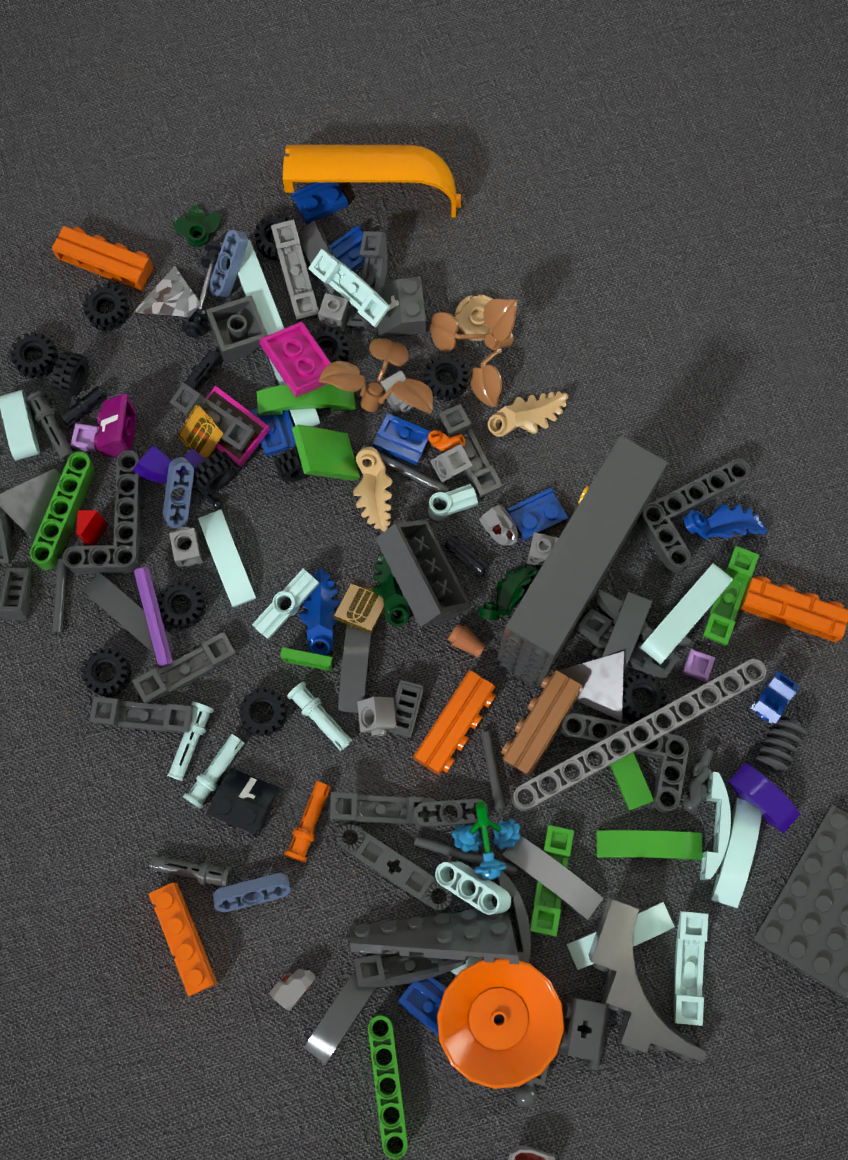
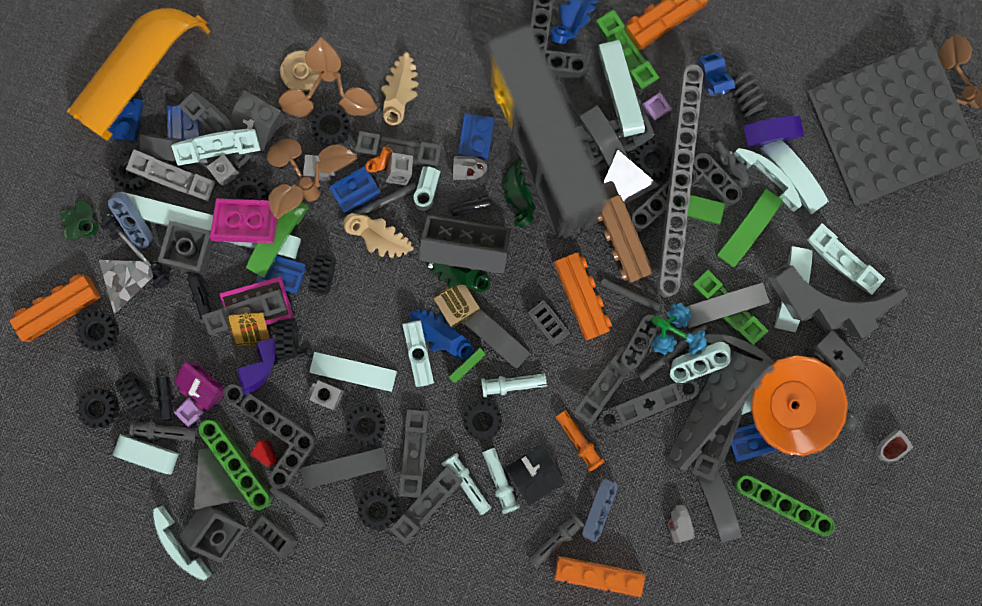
camera: 55 degrees left, 10 degrees up
(153, 616) = (362, 451): medium lavender axle -> none
(173, 483) = (276, 371): sand blue beam -> none
(325, 453) = (330, 250): bright green tile -> none
(377, 715) = (541, 345): light grey brick -> none
(466, 640) = (528, 249): nougat cone -> none
(540, 548) = (506, 152): light grey brick -> none

